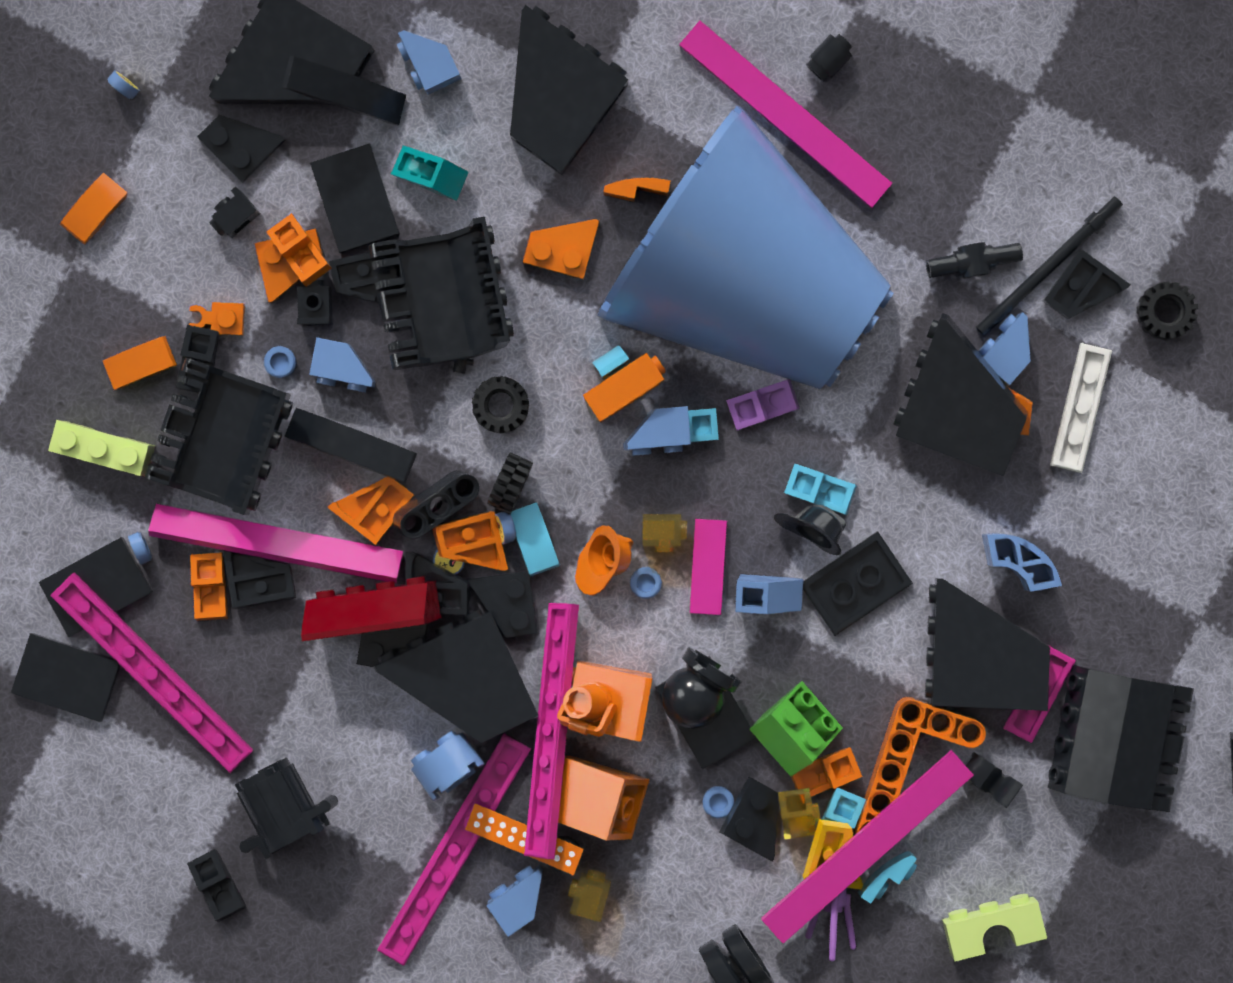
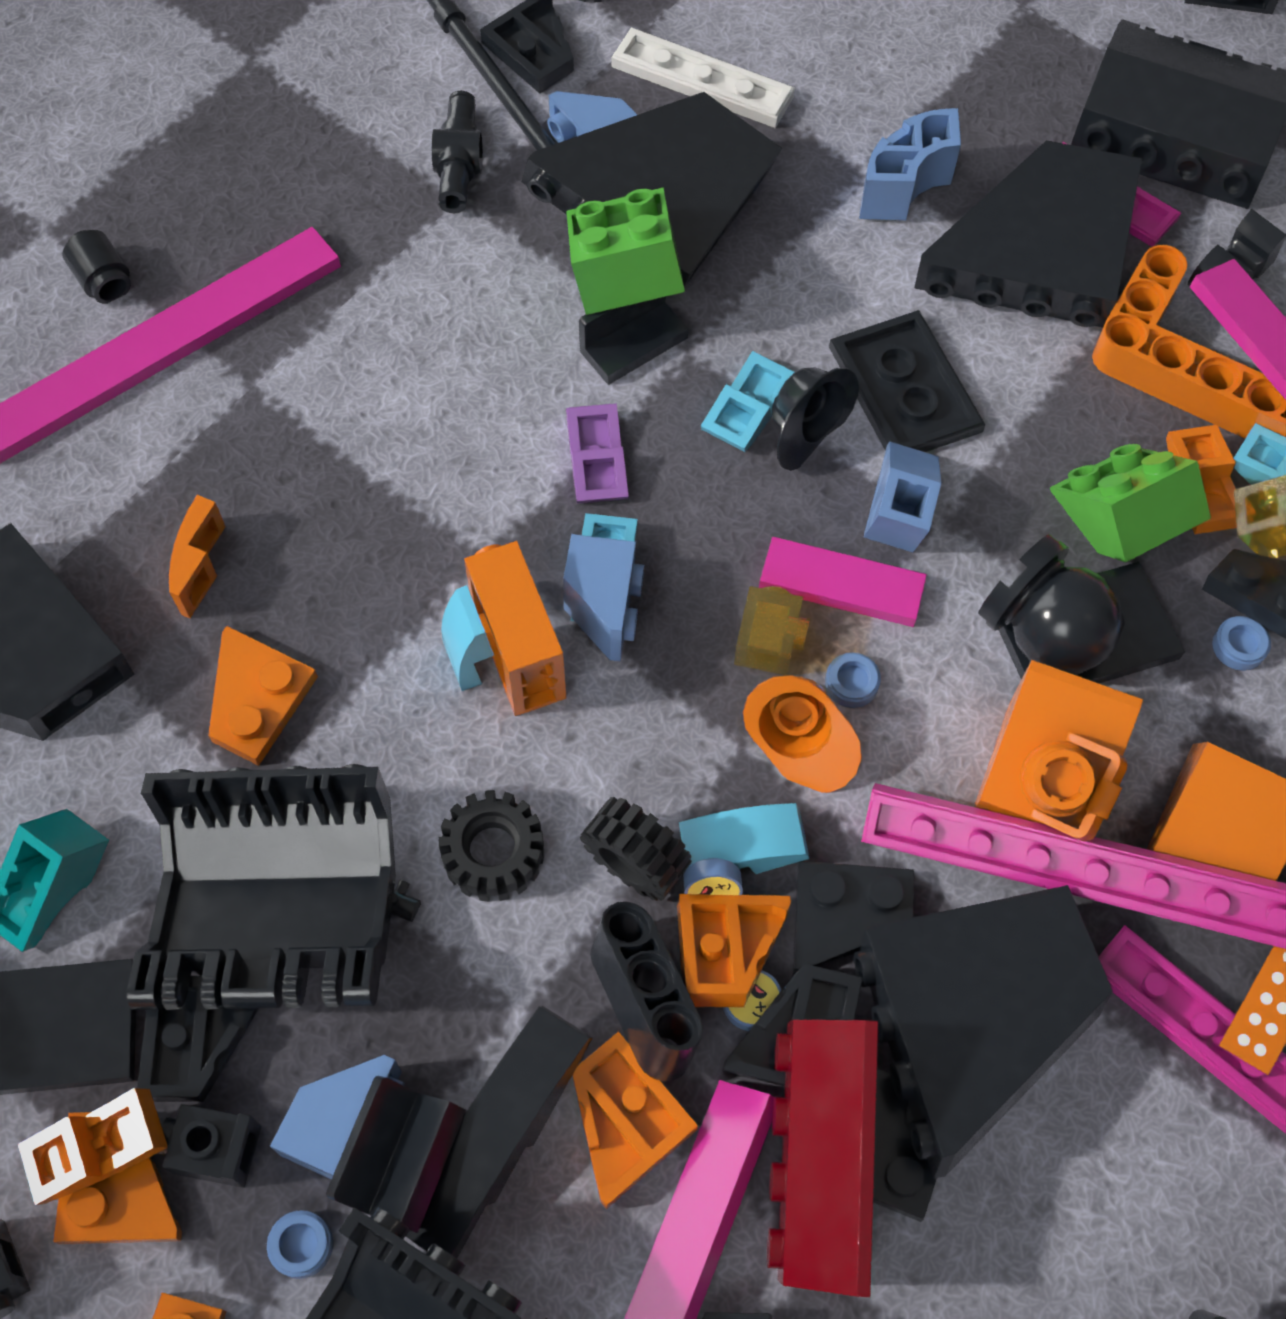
camera: 80 degrees left, 25 degrees down
(327, 400) = (396, 1152): none -> black panel
(446, 765) = (1147, 1073): medium blue brick -> none
(750, 266) = (380, 416): medium blue cone -> none
(853, 408) = (629, 337): none -> black panel
(890, 393) = (624, 251): none -> bright green slope

